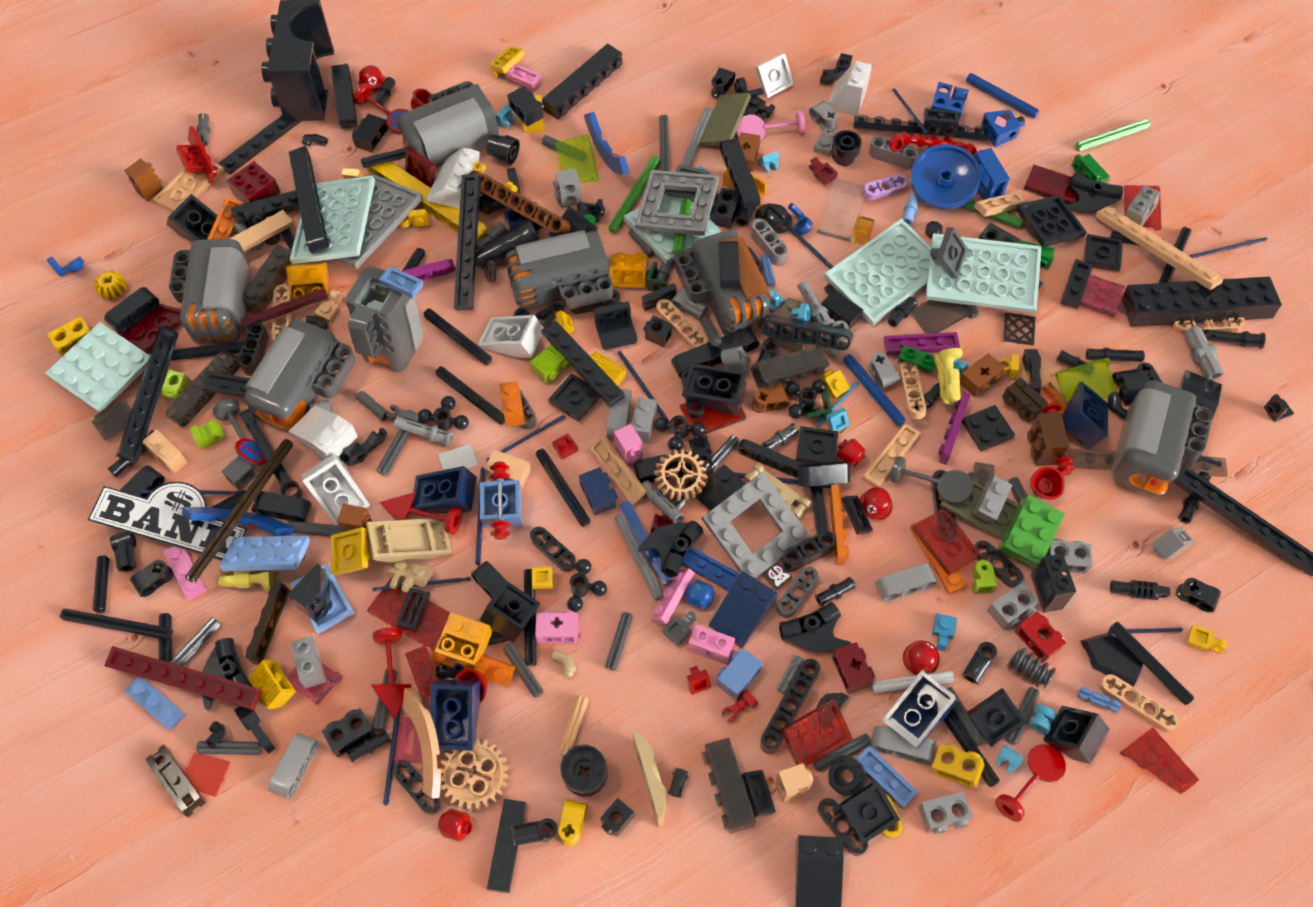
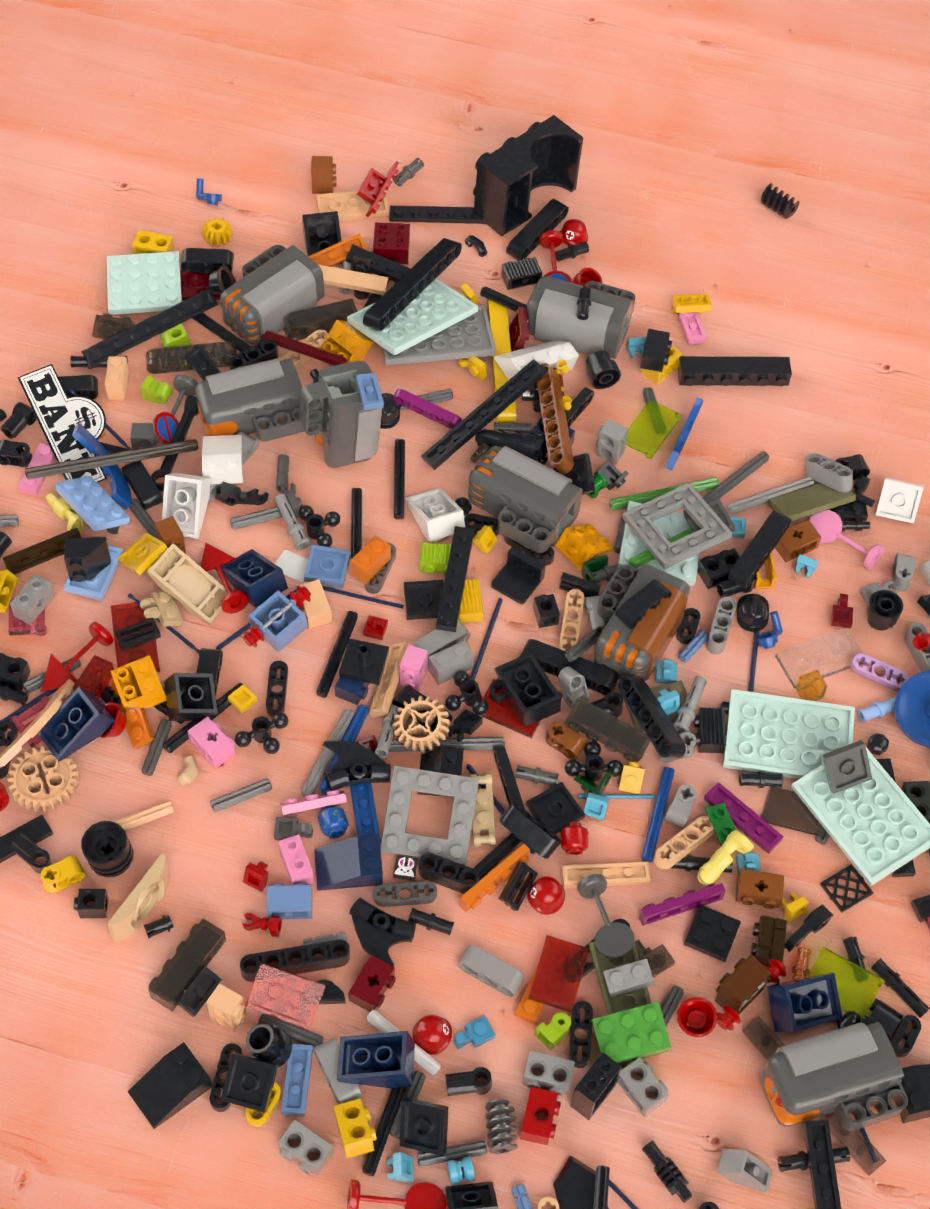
camera: 45 degrees right, 5 degrees down
(162, 315) = (220, 280): none -> black piece
(451, 109) = (584, 303): none -> black axle
(483, 437) = (327, 565): none -> medium blue plate
(593, 472) = (364, 661): none -> black tile
(717, 93) = (829, 472): none -> light grey beam

